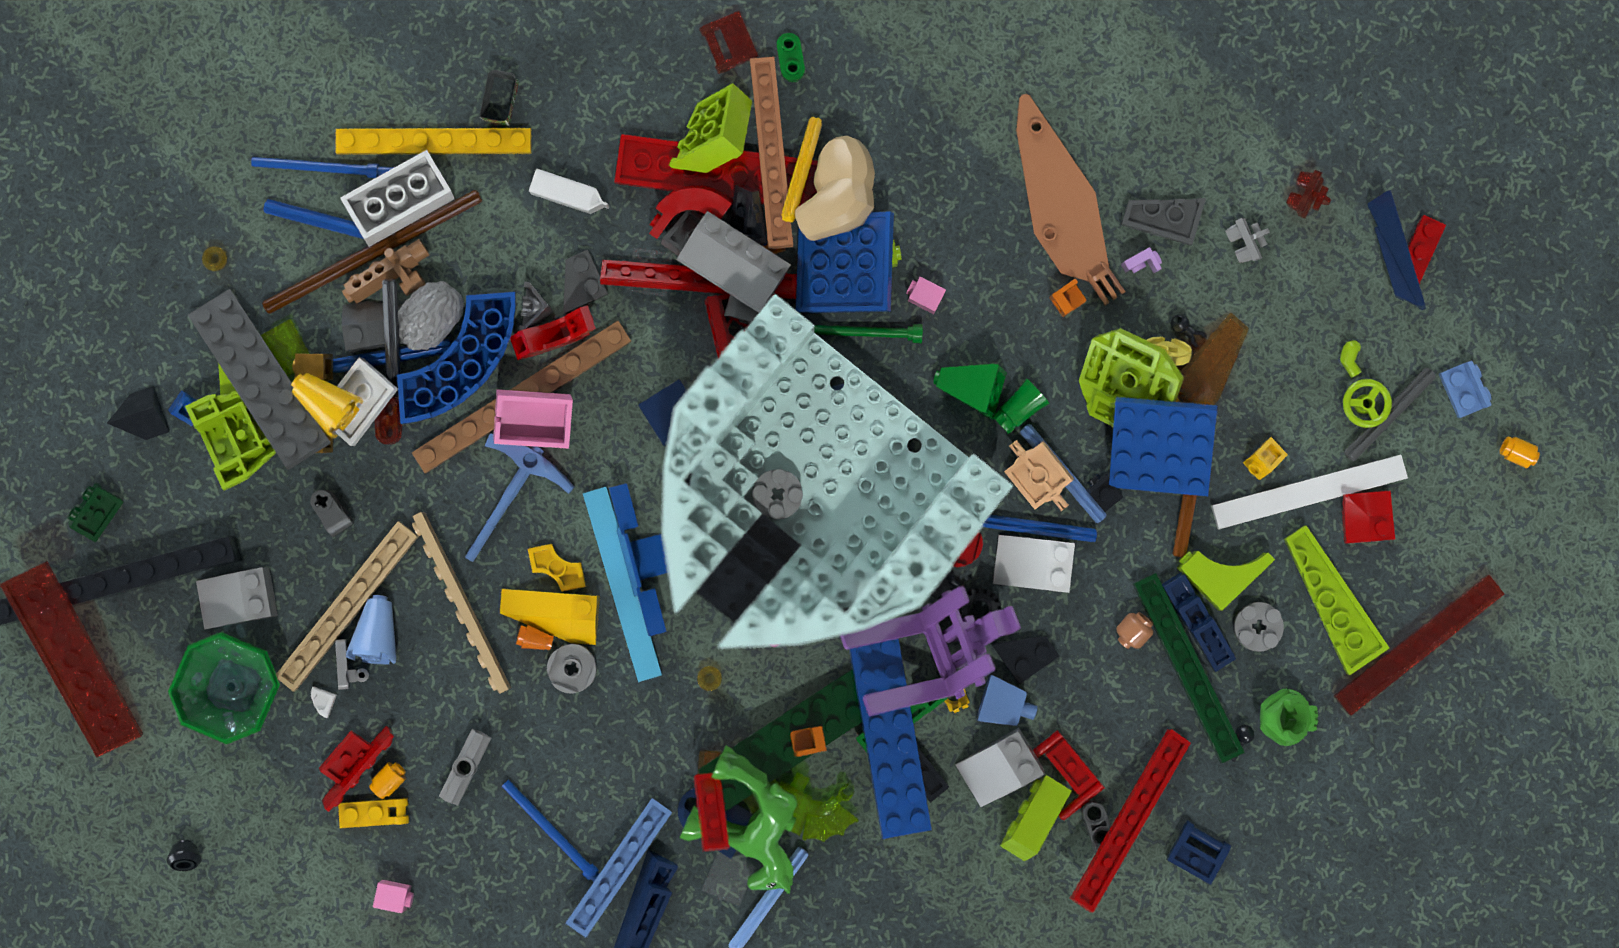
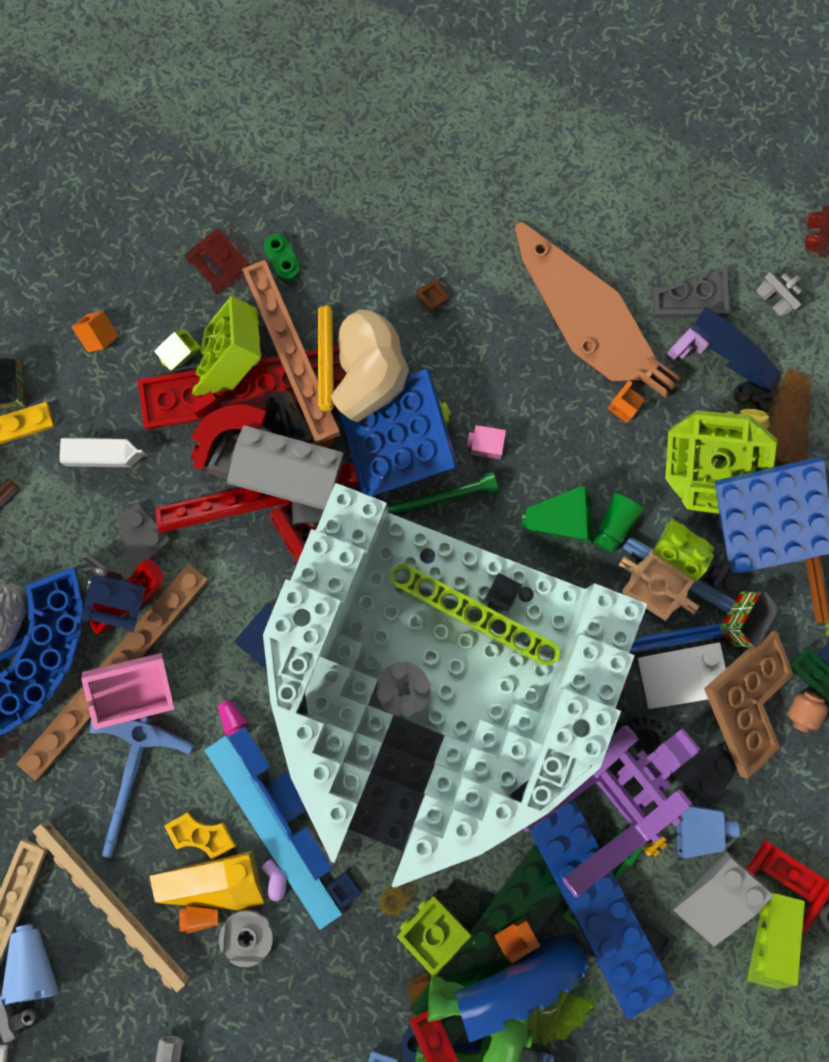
camera: 15 degrees left, 5 degrees down
(548, 330) = (114, 594): none -> dark blue plate
(595, 75) = (95, 331): none -> orange panel
(613, 627) = (277, 880): none -> lavender arm
(615, 472) = (231, 718): none -> dark pink cone
(667, 118) = (177, 349): none -> brick
(669, 654) = (343, 889): none -> dark blue tile
(677, 179) = (204, 405): none -> red tile
(737, 716) = (434, 935): none -> lime plate
(795, 774) = (522, 986): none -> blue brick
(856, 436) = (488, 615): none -> lime beam
(892, 438) = (502, 594): none -> black bracket
(920, 139) = (432, 295): none -> reddish brown tile
(1072, 451) = (684, 550): none -> lime plate
(1072, 601) = (739, 698): none -> medium nougat plate
(1114, 537) = (754, 622): none -> piece
(1187, 281) = (741, 352): none -> dark blue slope

